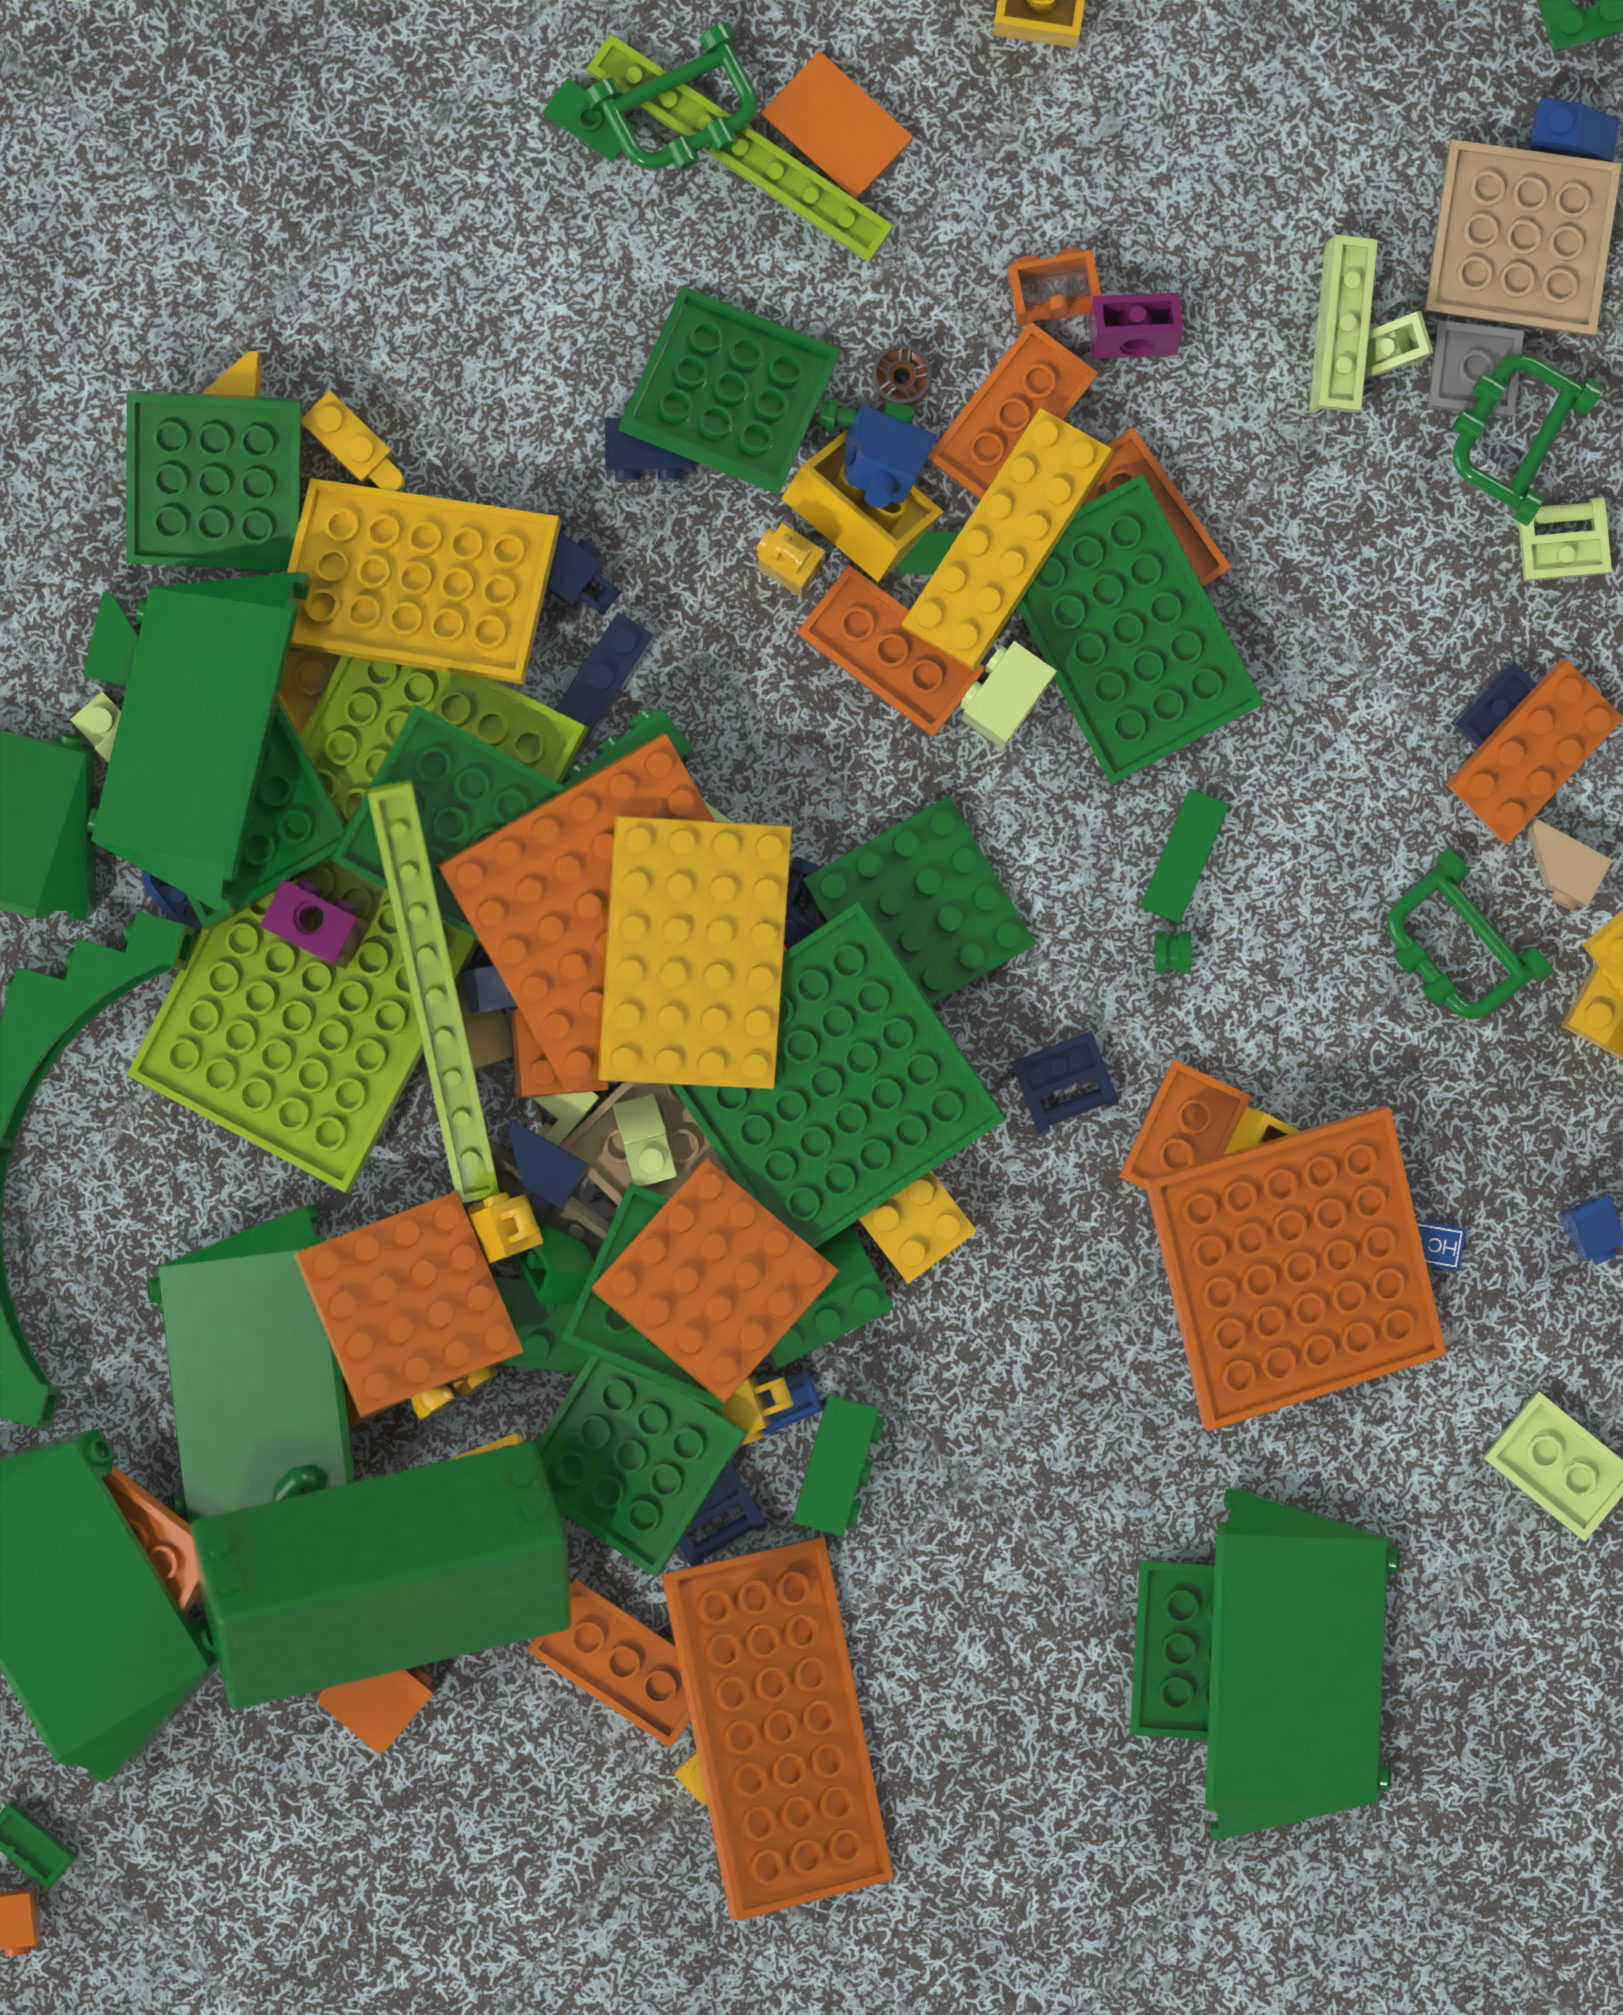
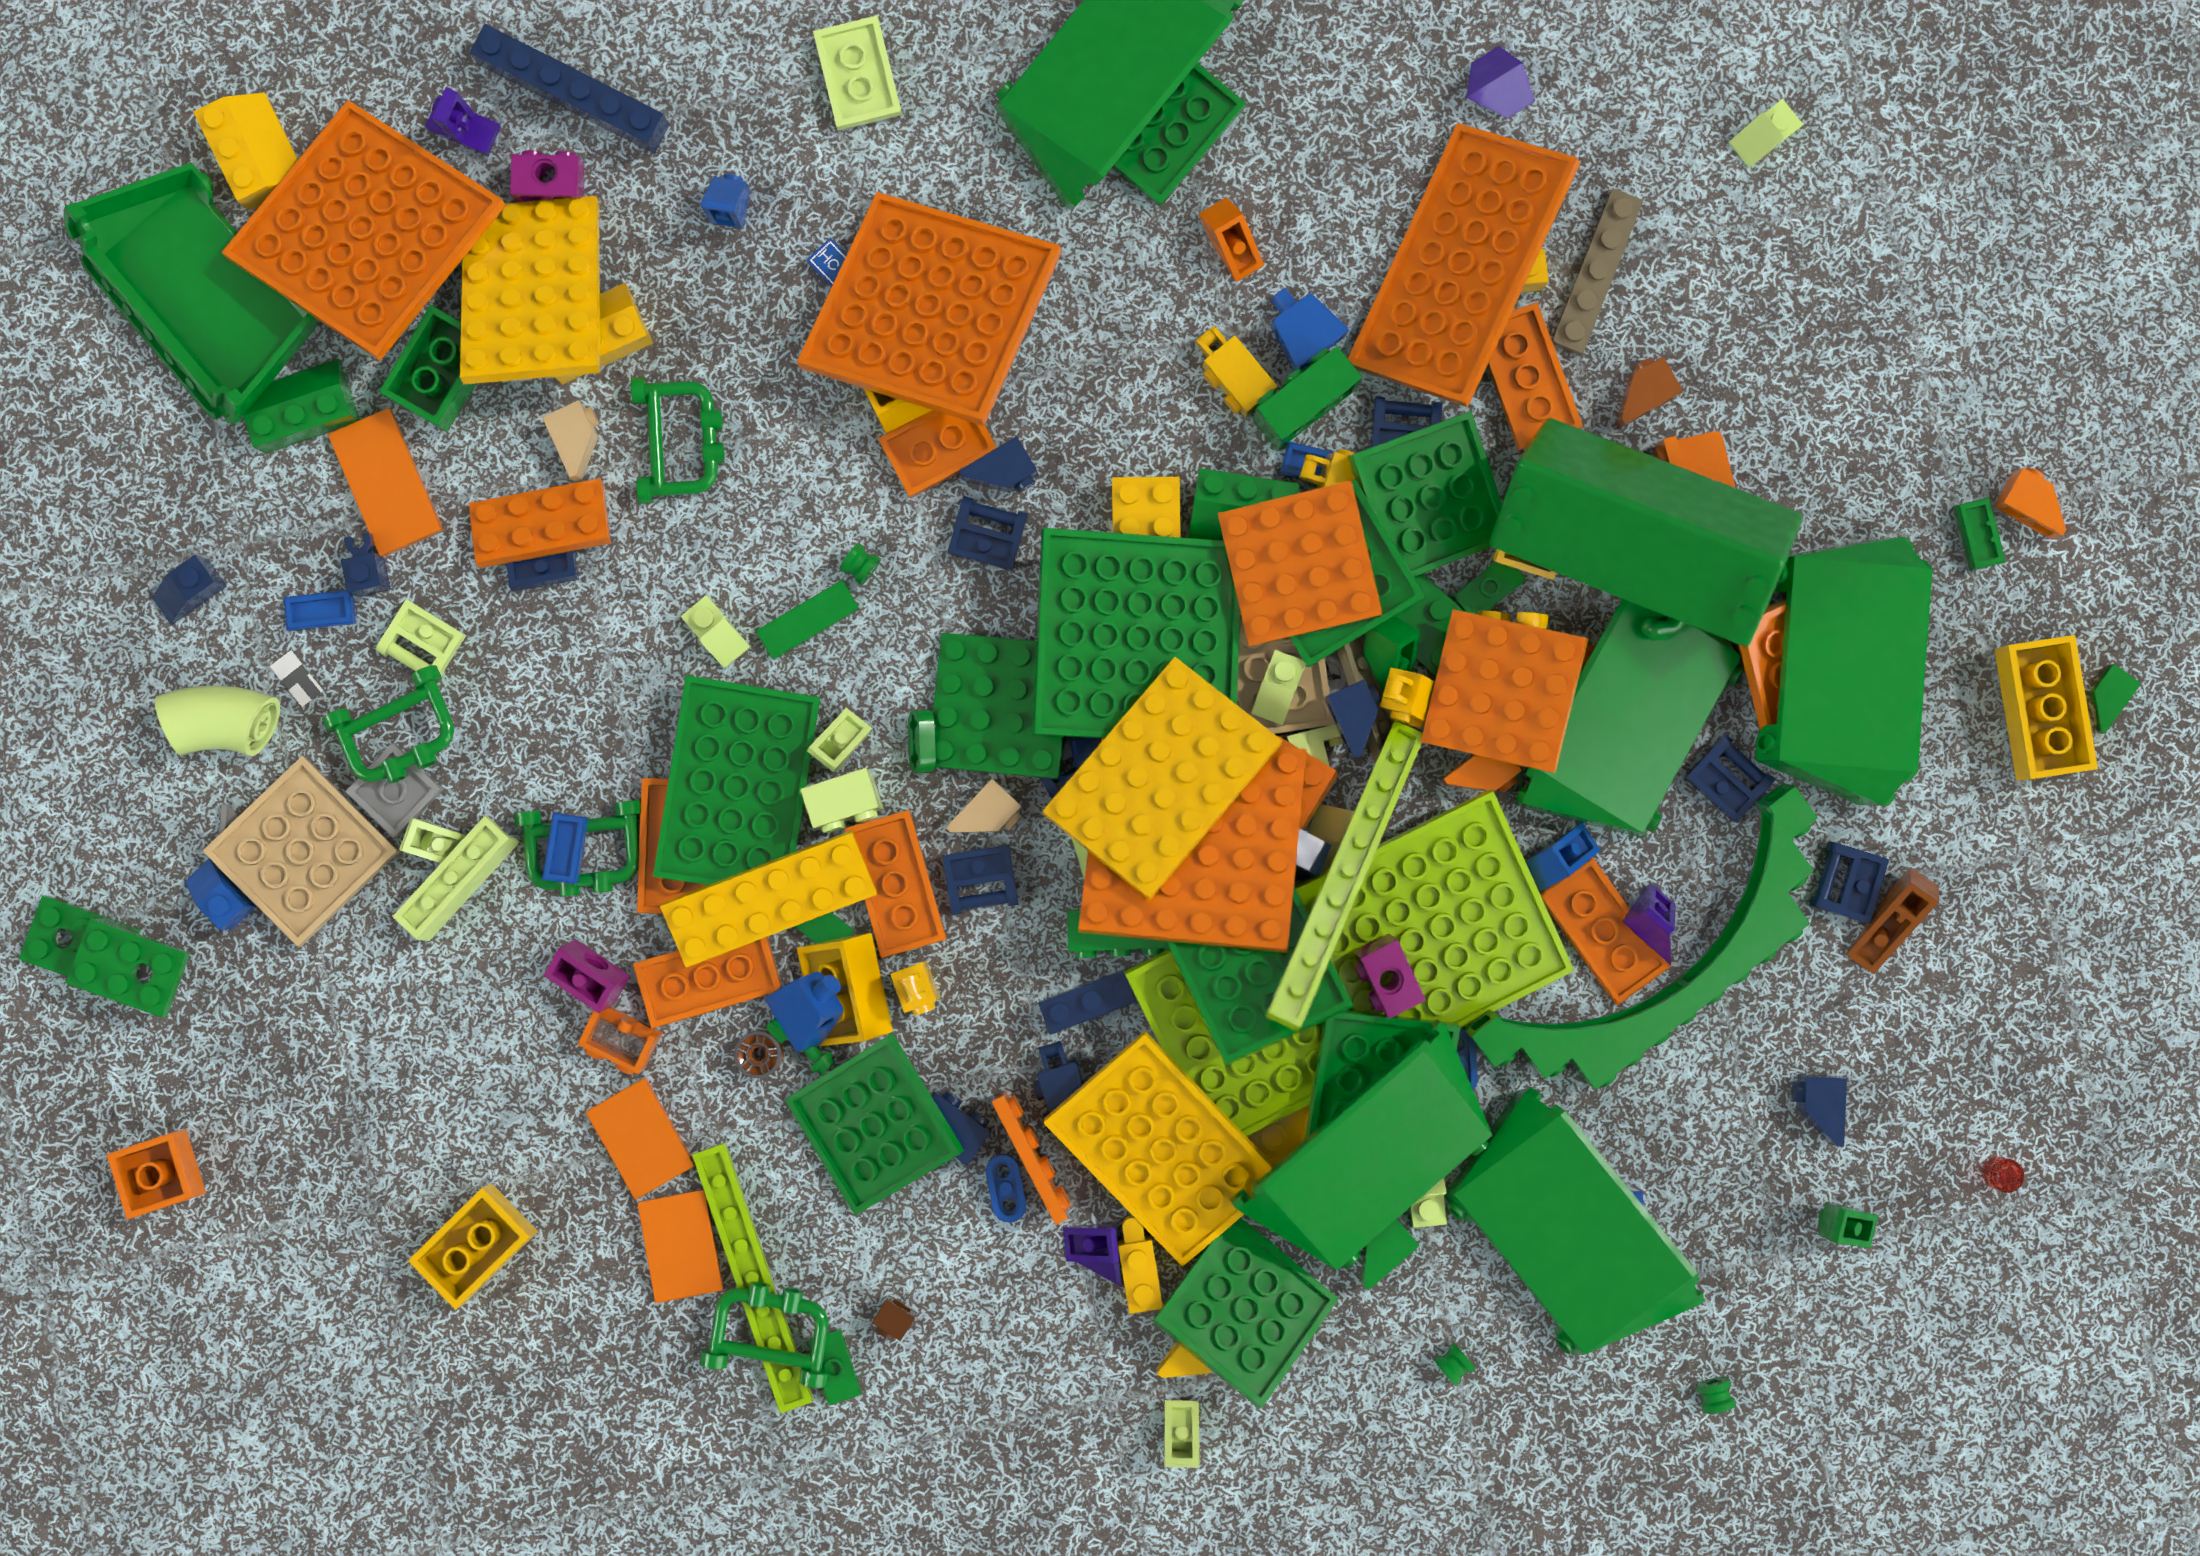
camera: 145 degrees left, 0 degrees up
(82, 1186) = (1653, 920): none -> dark purple slope
(109, 1380) = (1722, 786): none -> dark blue plate
(125, 1140) = (1591, 919): none -> orange tile
(188, 309) = (1181, 1433): none -> yellowish green slope
(223, 1183) = (1562, 857): none -> blue slope
(368, 1204) = (1482, 774): none -> orange slope
(412, 431) = (1094, 1248): none -> dark purple slope
(487, 1739) = (1647, 389): none -> dark orange slope
(502, 1405) = (1488, 588): none -> green plate
(531, 469) = (1038, 1167): none -> orange plate
(549, 426) = (1006, 1187): none -> blue plate
(565, 211) = (893, 1319): none -> reddish brown plate
(631, 1830) = (1597, 271): none -> dark tan plate
(817, 730) = (977, 868): none -> dark blue plate
(850, 793) = (987, 812): none -> tan slope
(881, 1953) = (1499, 83): none -> slope
(893, 1540) = (1304, 327): none -> blue torso
(932, 1439) = (1234, 372): none -> yellow brick
(958, 203) = (640, 1138): none -> orange tile
(972, 816) = (921, 741): none -> green beam
(1039, 1579) = (1231, 238): none -> orange slope
(1057, 754) = (839, 740): none -> yellowish green slope
(1097, 1161) = (1002, 468): none -> dark blue slope
(1224, 406) = (600, 881): none -> green bar
(1254, 437) = (565, 848): none -> blue tile
(1270, 773) = (715, 631): none -> yellowish green slope

